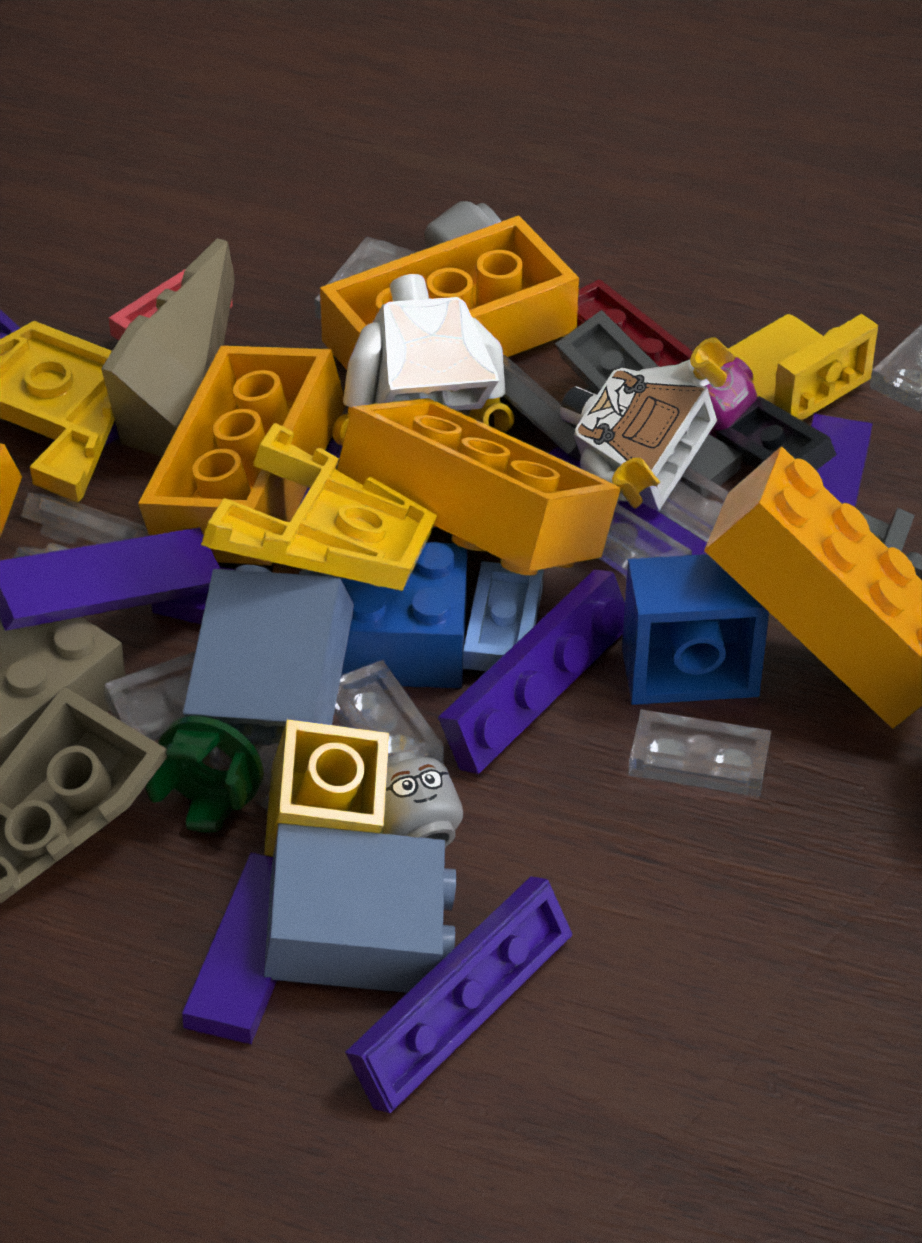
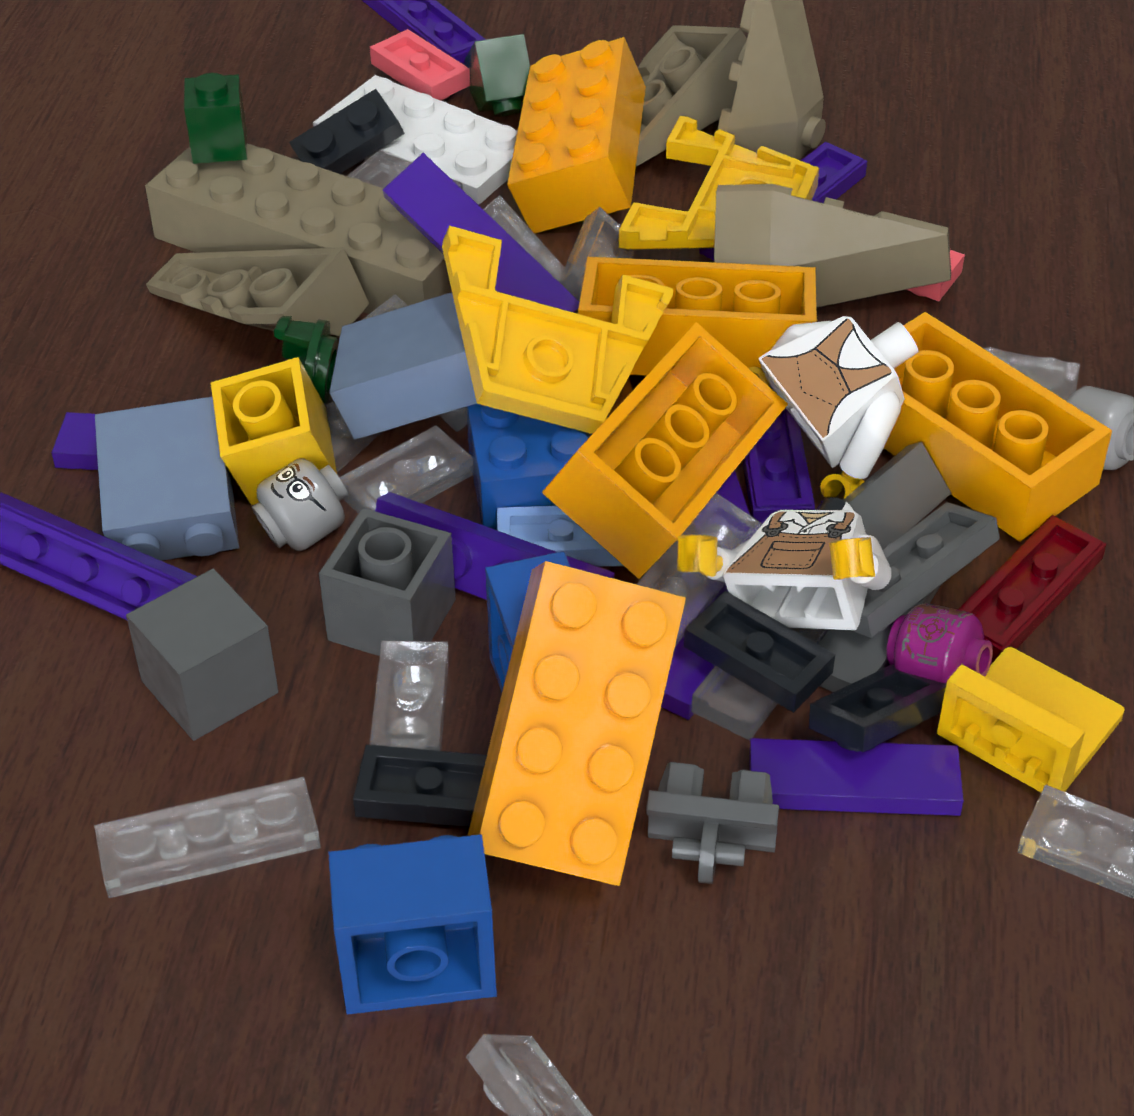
camera: 80 degrees right, 0 degrees up
(566, 737) = (387, 582): none -> dark grey head
(630, 889) = (203, 653): none -> dark grey head
(696, 496) = (759, 651): none -> black plate
(807, 751) = (418, 785): none -> black plate
(834, 929) = (206, 837): none -> clear plate

